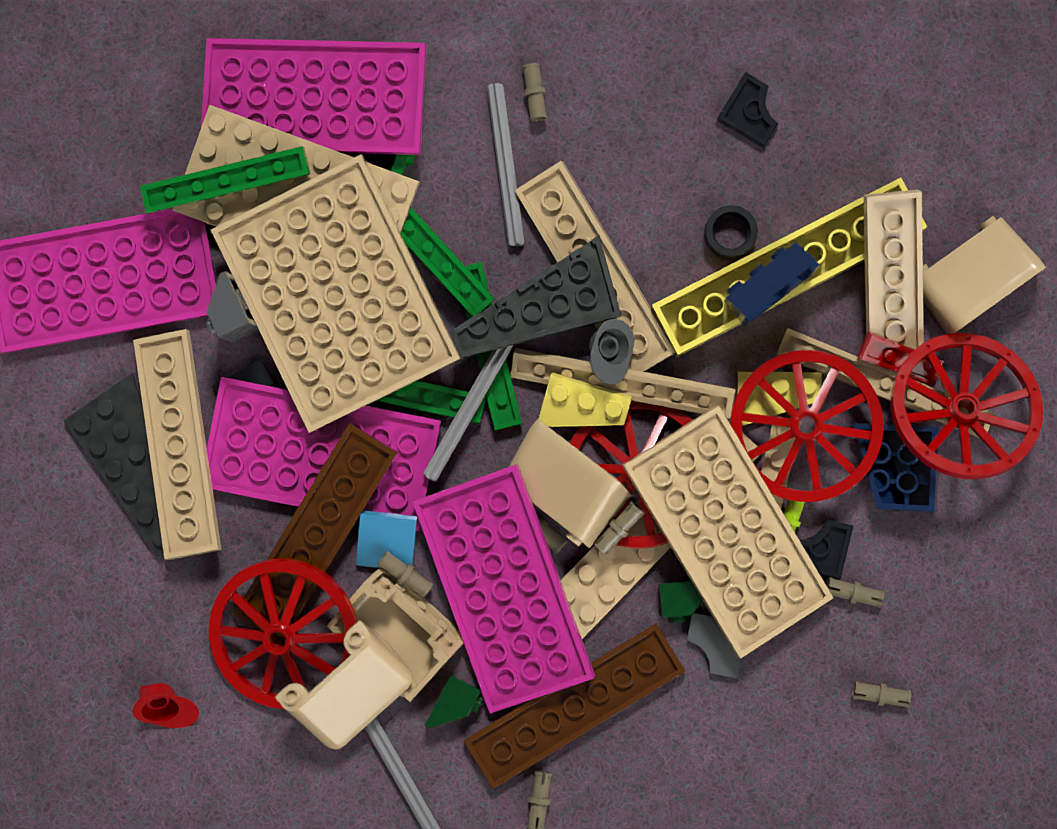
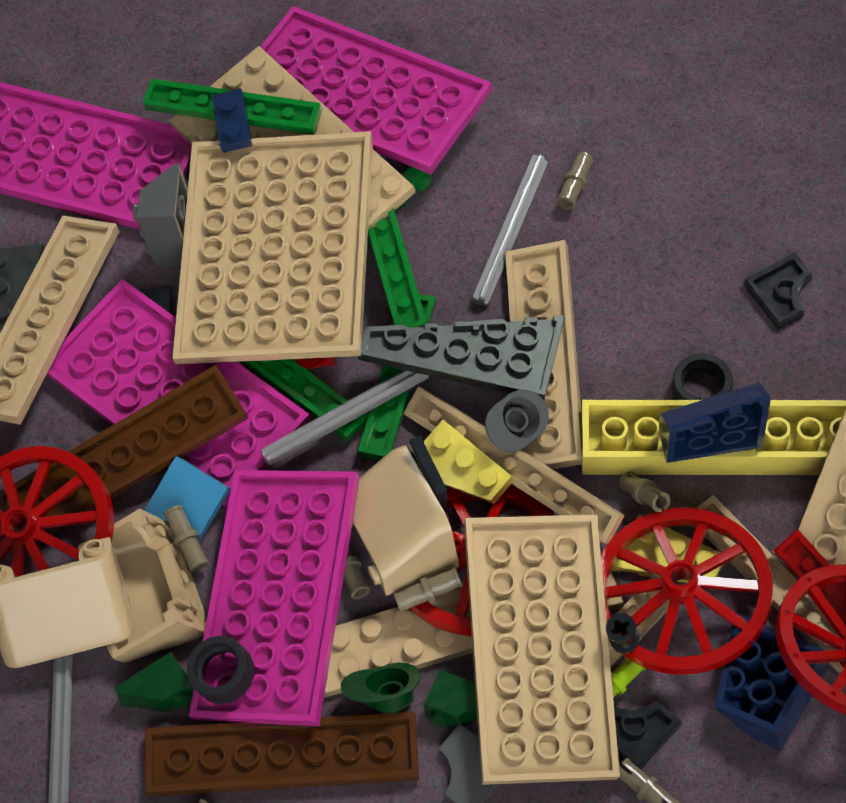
camera: 30 degrees right, 25 degrees down
(236, 197) = (232, 120): none -> dark blue plate
(477, 676) = (204, 654): none -> black tyre
(572, 437) = (426, 465): none -> black tile
(622, 618) = (384, 687): none -> dark green piece
(736, 354) = (644, 491): none -> dark tan pin
(787, 500) = (625, 623): none -> black bush

